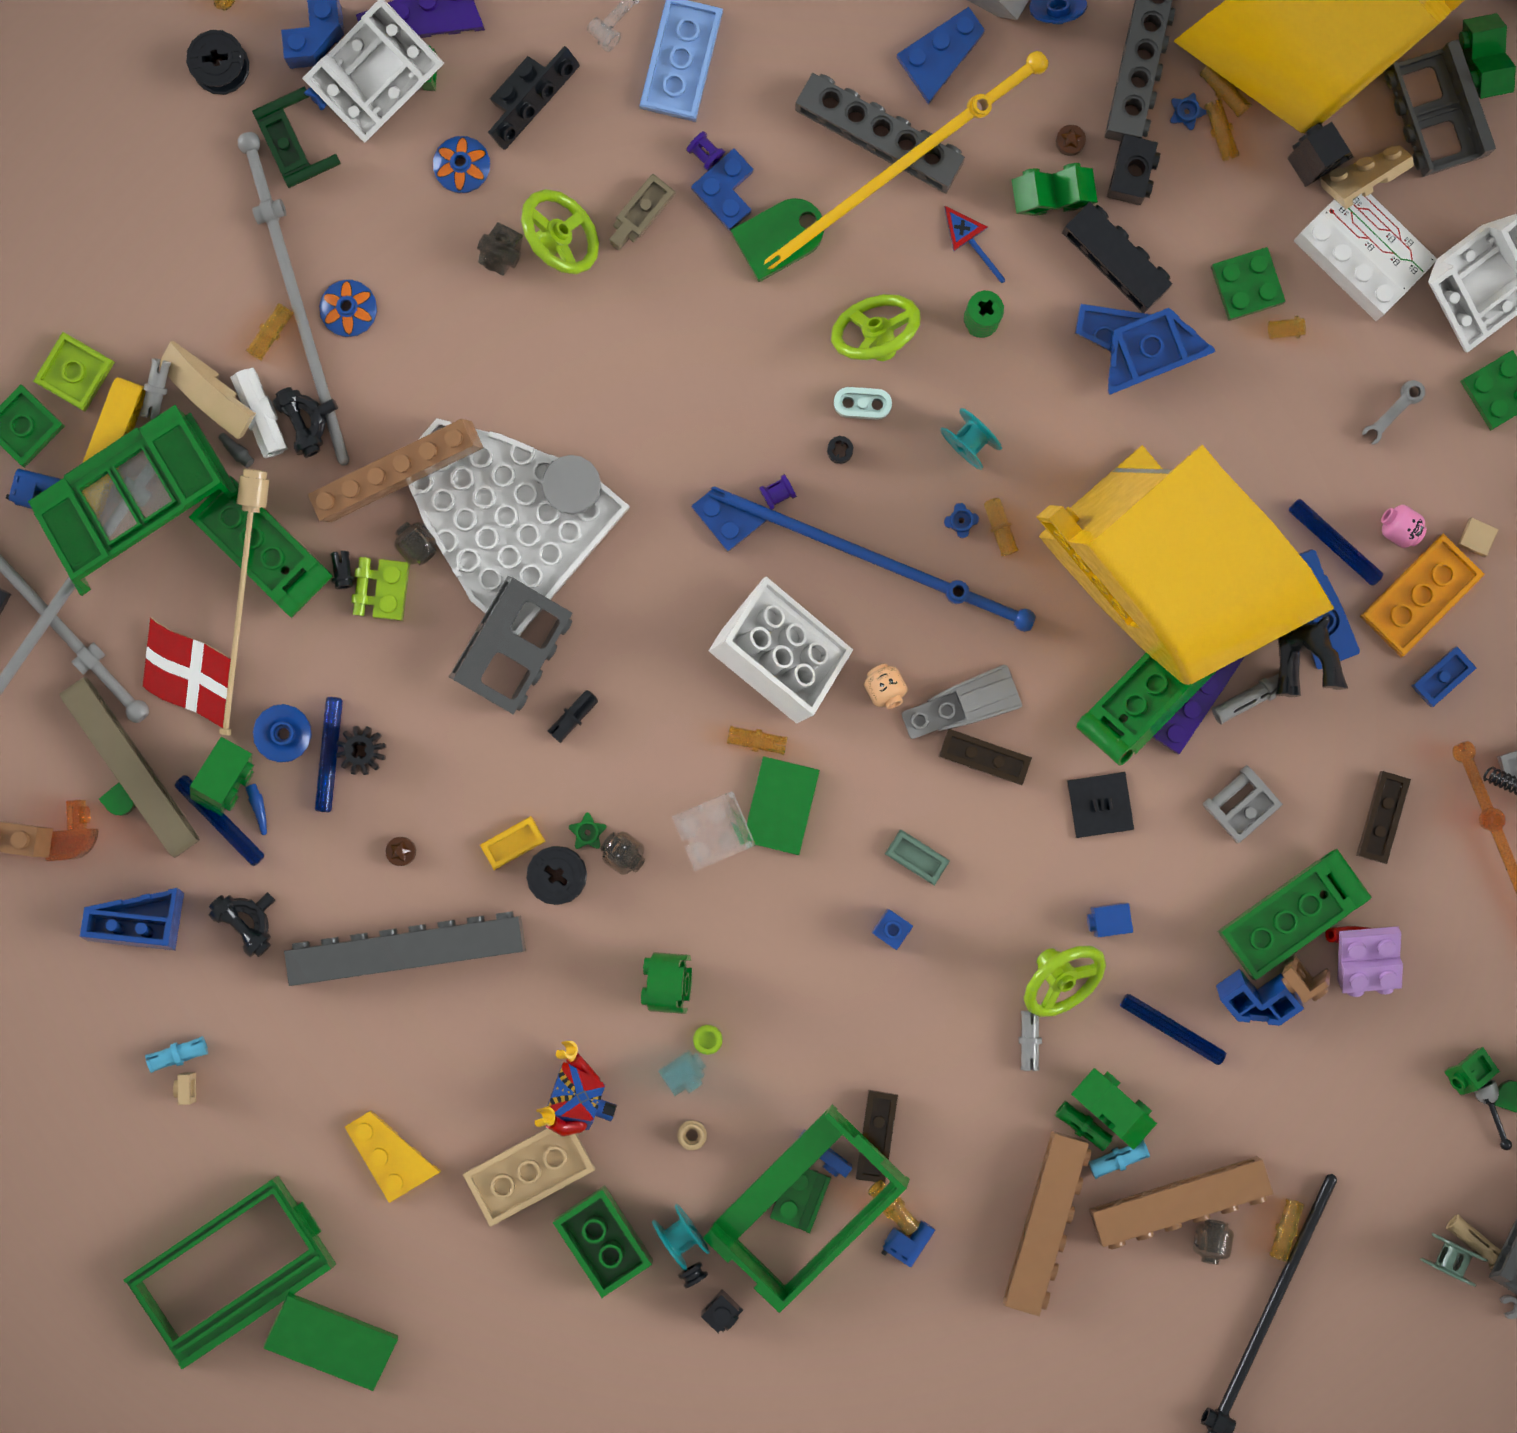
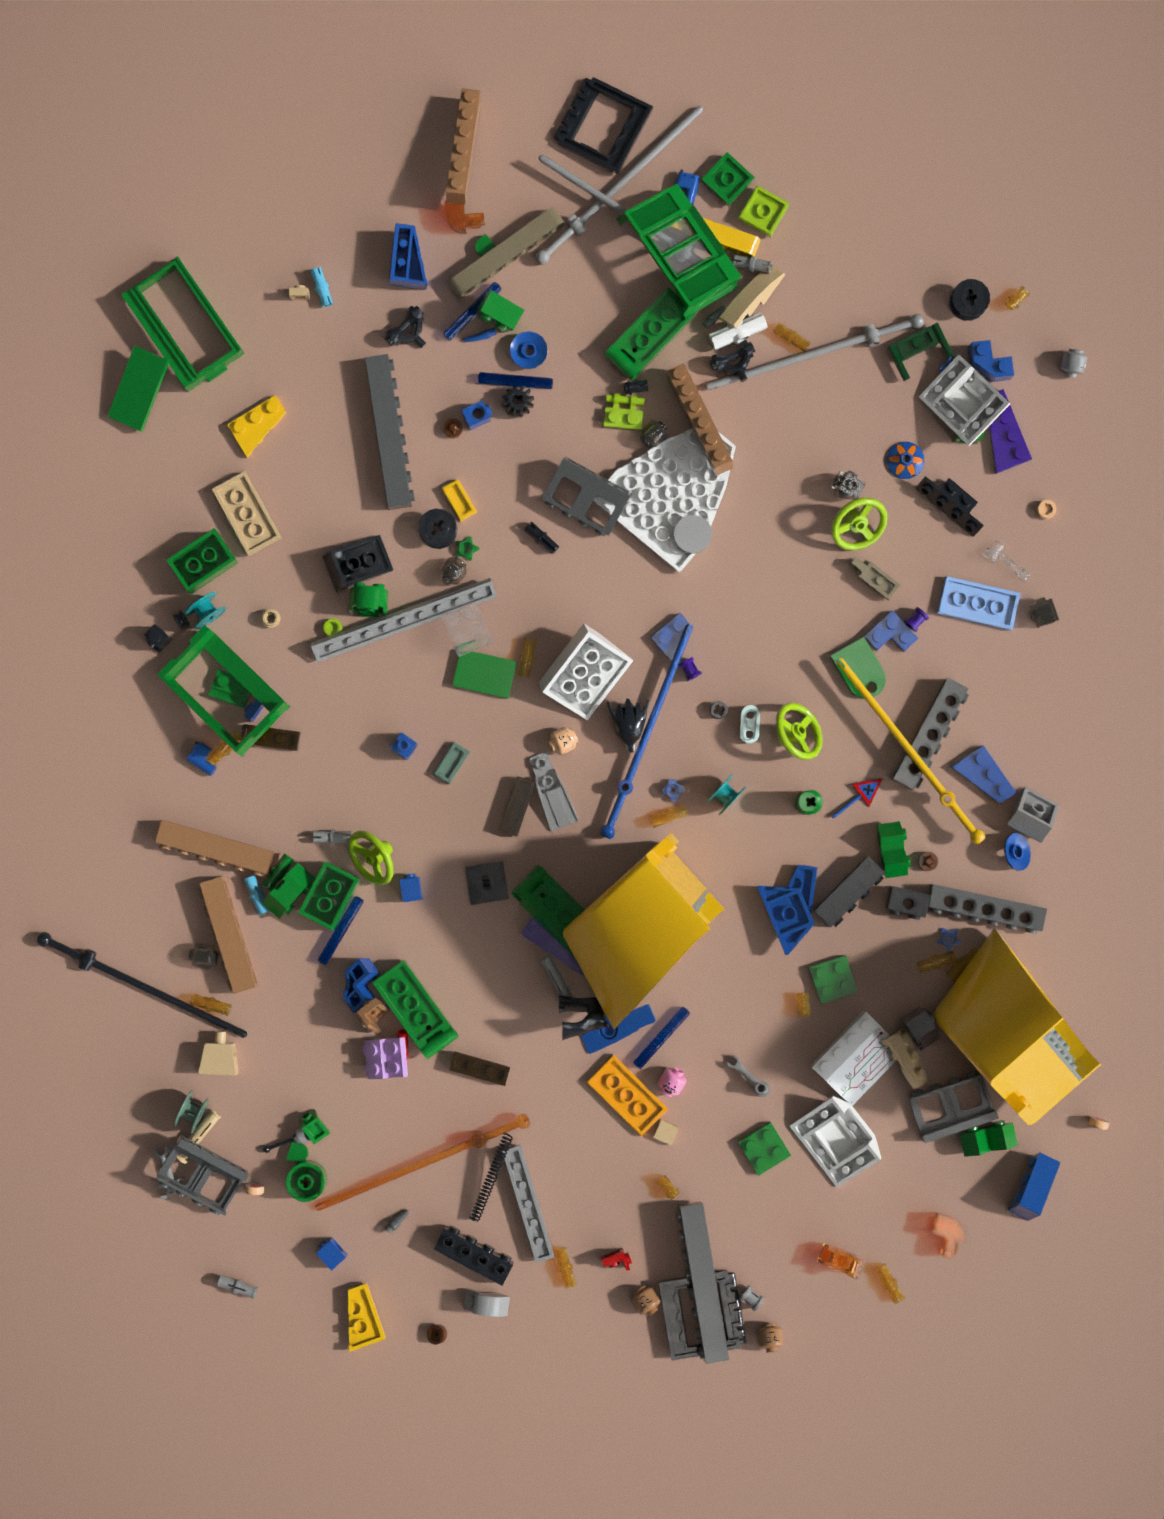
camera: 90 degrees right, 0 degrees up
(191, 670) = (569, 290): flag -> none
(355, 320) = (805, 396): blue dish -> none
(392, 820) = (473, 422): none -> blue brick
(574, 1096) = (295, 541): torso -> none
(608, 1000) = (357, 562): none -> black slope
(683, 1073) = (310, 612): clear light blue brick -> none
(697, 930) = (402, 620): none -> light grey plate
(859, 584) = (629, 722): none -> black piece
(1122, 1045) = (329, 895): none -> green brick
(1249, 811) = (483, 980): light grey plate -> none
(1368, 1217) = (219, 1057): none -> tan torso
(1443, 676) = (572, 1108): blue plate -> none

